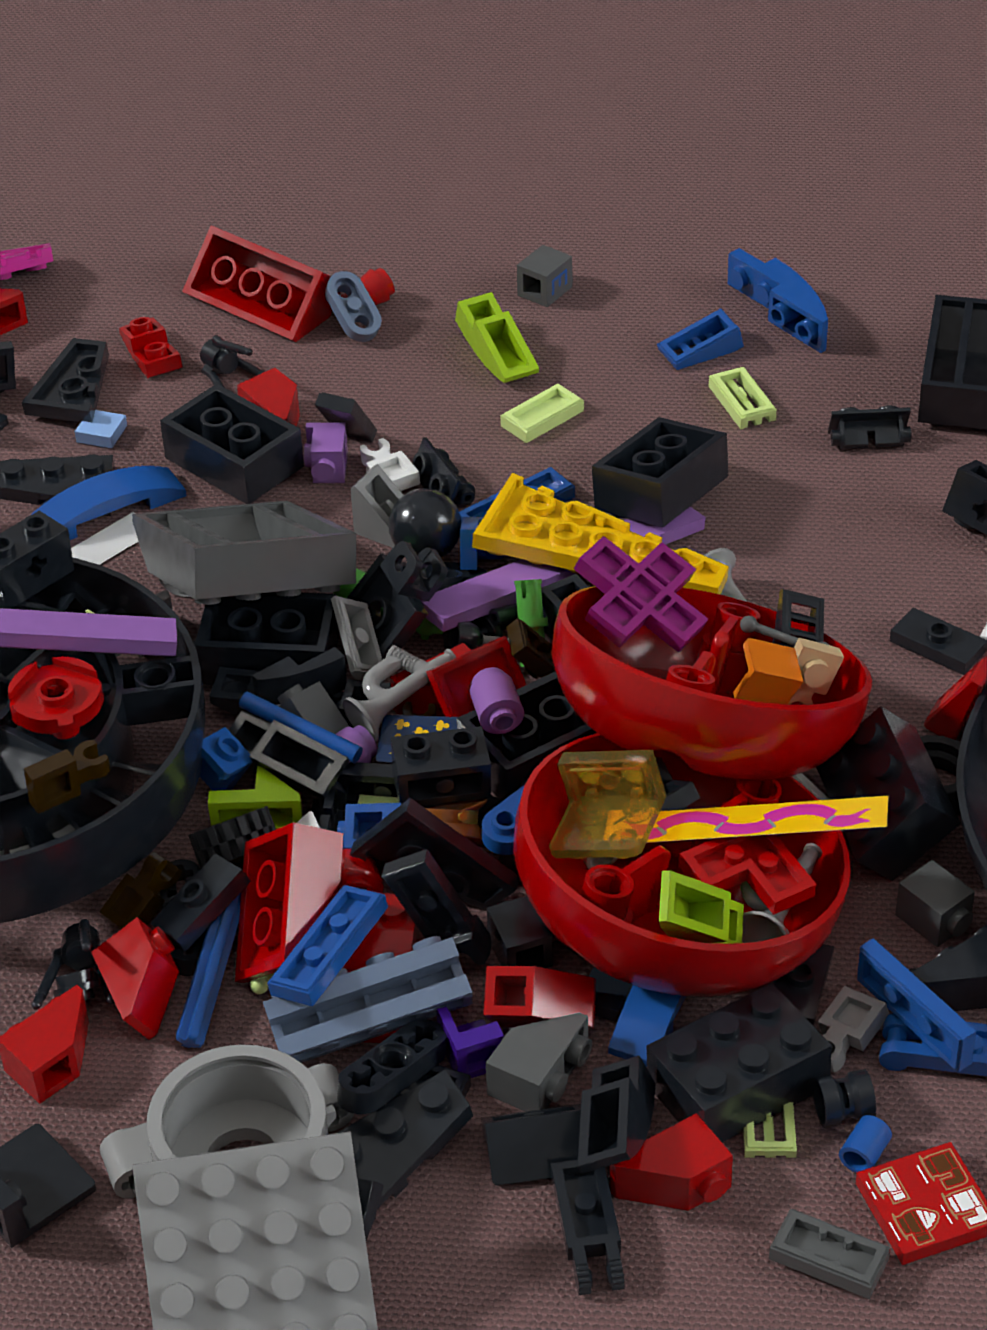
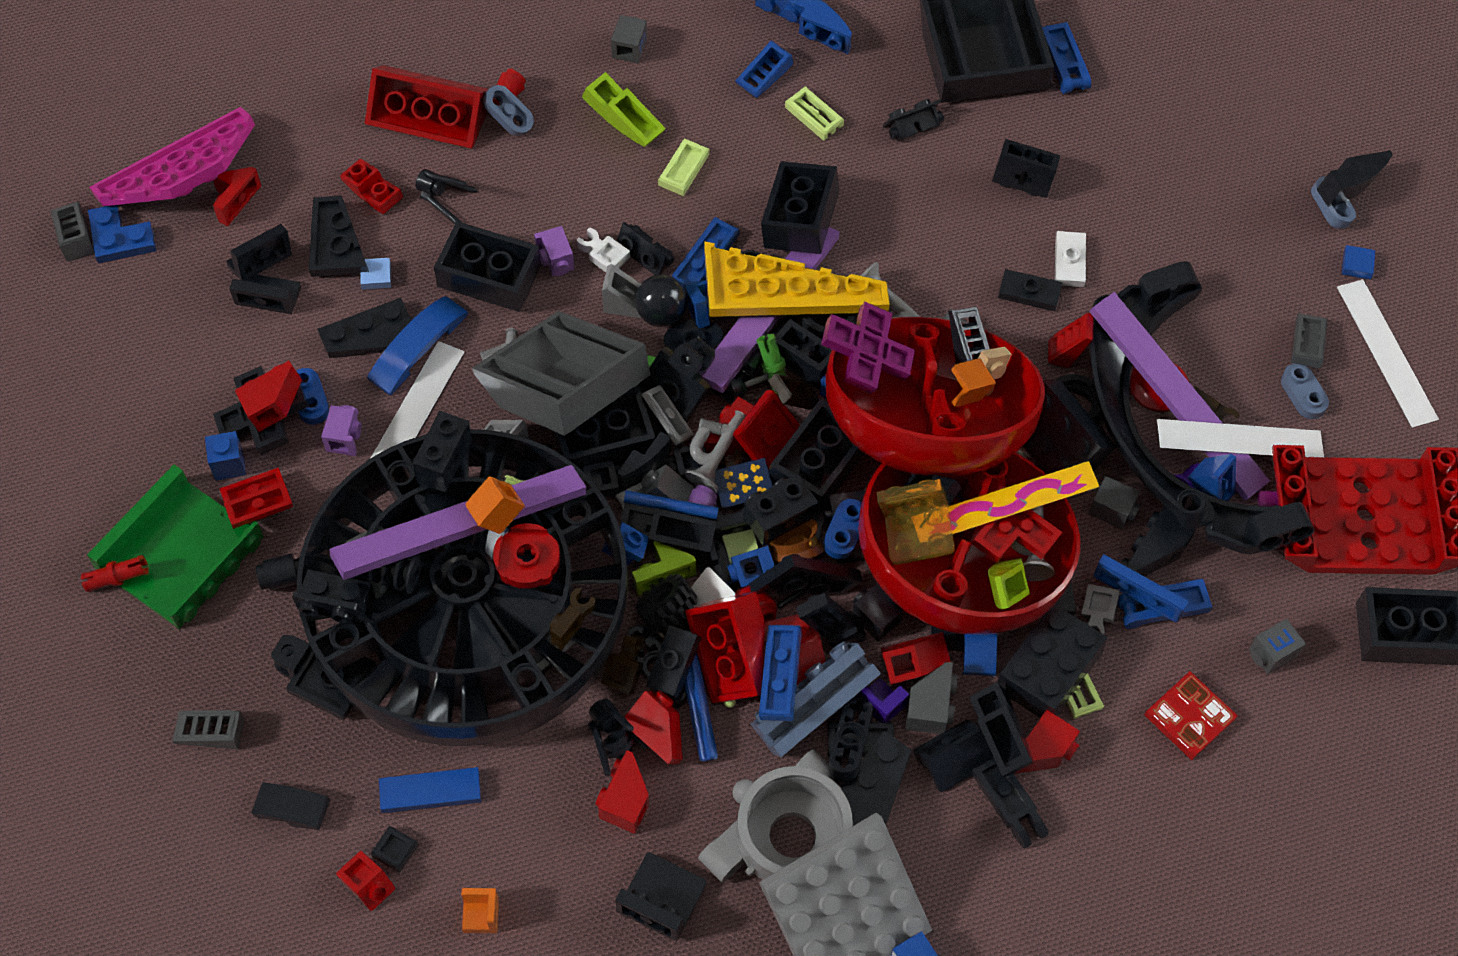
camera: 25 degrees left, 20 degrees up
(40, 617) = (494, 505): none -> orange panel
(273, 393) = (492, 214): red slope -> none
(346, 410) = (558, 219): black tile -> none
(496, 701) = (796, 449): medium lavender brick -> none
(749, 625) = (941, 345): dark grey hinge -> none
(829, 1253) = (1153, 771): dark grey plate -> none
(843, 1097) = (1119, 663): black wheel -> none
(865, 1143) = (1142, 689): blue hinge -> none

